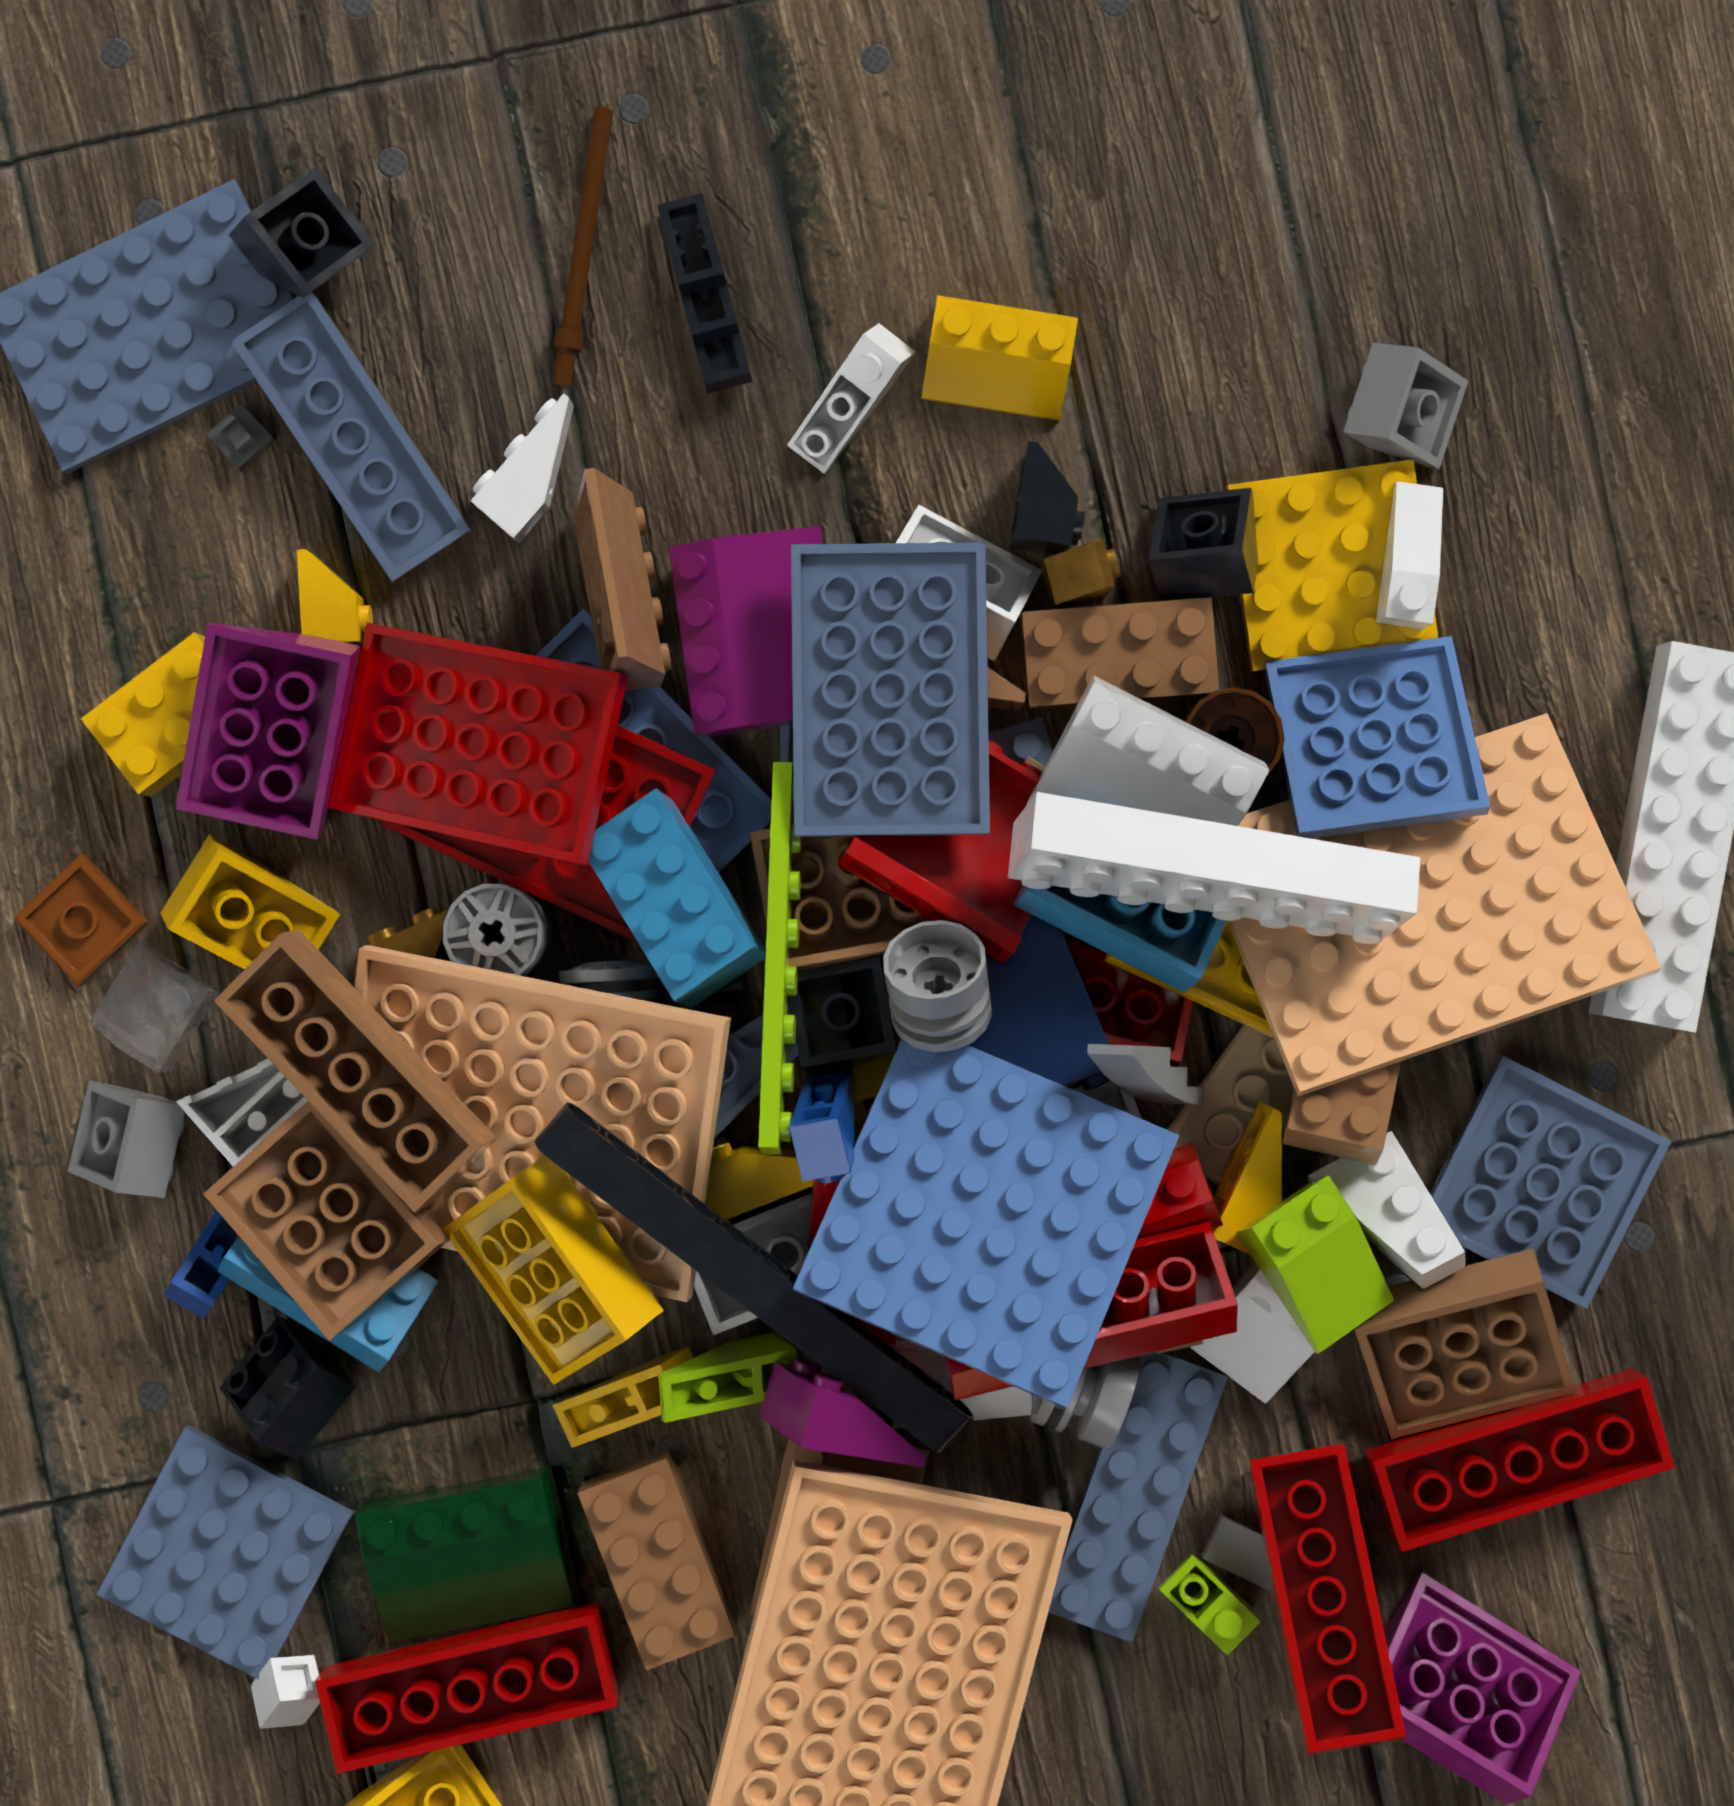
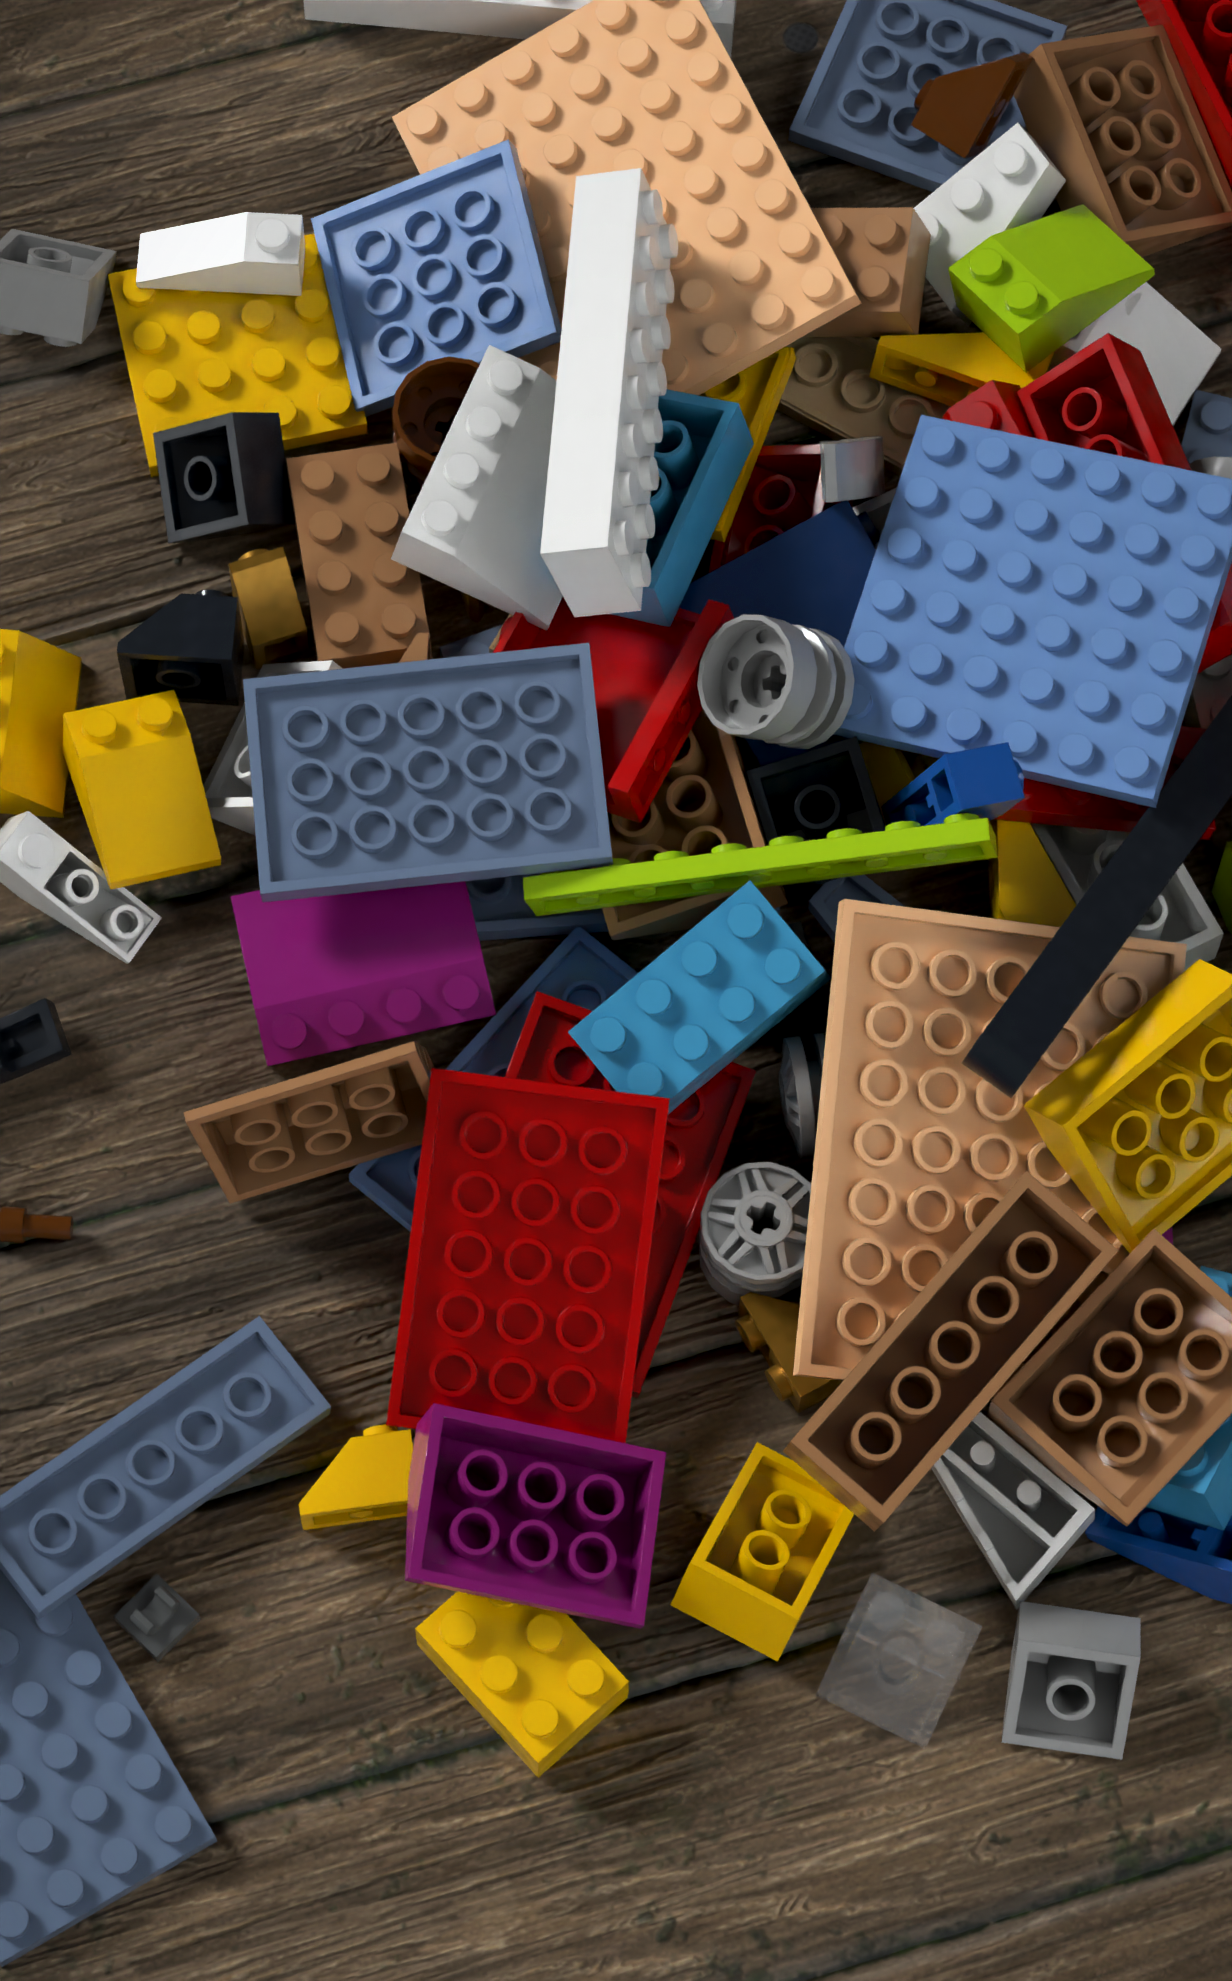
camera: 95 degrees left, 20 degrees down
(81, 920) = (796, 1769): dark orange tile -> none
(525, 483) = (193, 1253): white slope -> none
(922, 460) = (140, 789): none -> yellow slope
(1503, 1211) = (968, 104): none -> reddish brown slope

